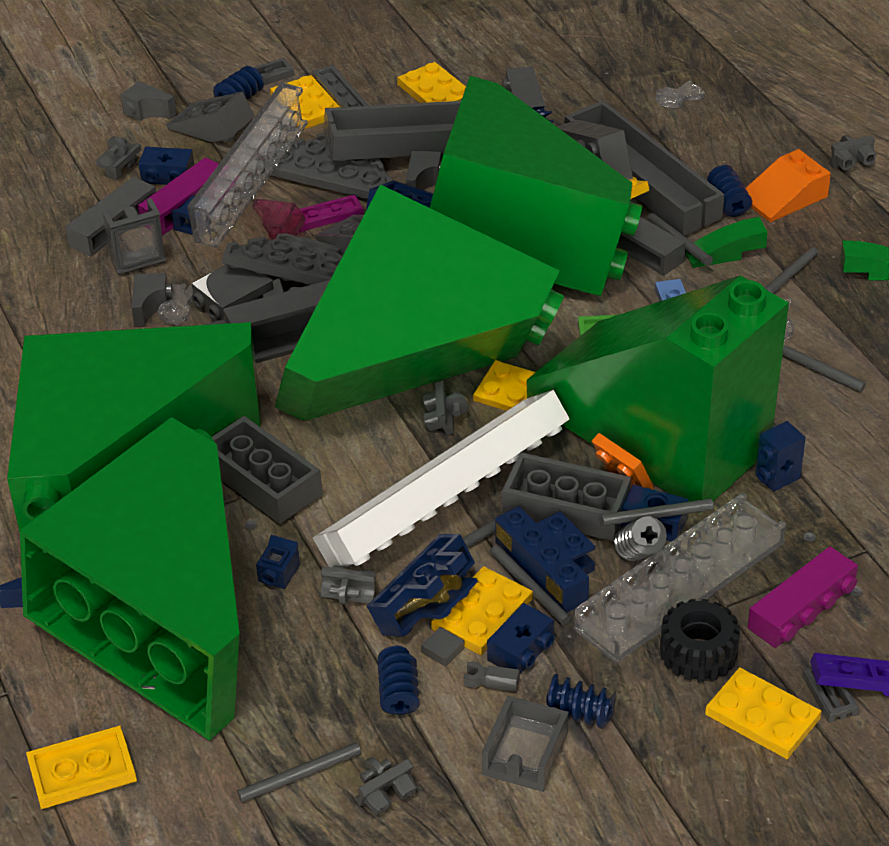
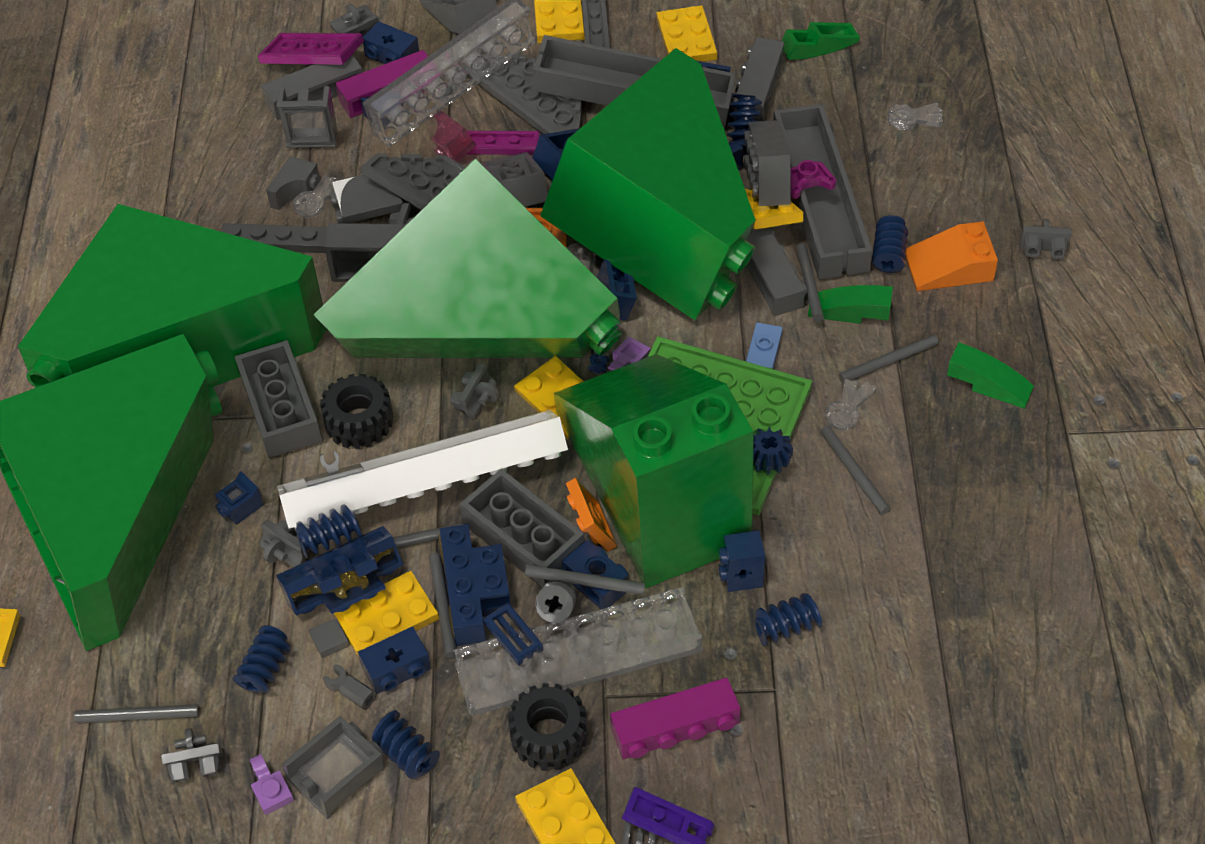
camera: 25 degrees right, 10 degrees up
(92, 185) = (311, 48): none -> magenta tile
(345, 455) = (354, 394): none -> black tyre
(368, 498) = (333, 471): none -> piece
(396, 549) = (327, 529): none -> dark blue piece
(473, 785) = (271, 788): none -> medium lavender plate
(537, 355) = (598, 364): none -> dark blue piece
(557, 60) = (818, 39): none -> green slope
(561, 337) = (628, 353): none -> medium lavender plate
(620, 579) = (526, 652): none -> dark blue tile
(640, 151) = (808, 175): none -> magenta piece
(844, 489) = (786, 617): none -> dark blue piece

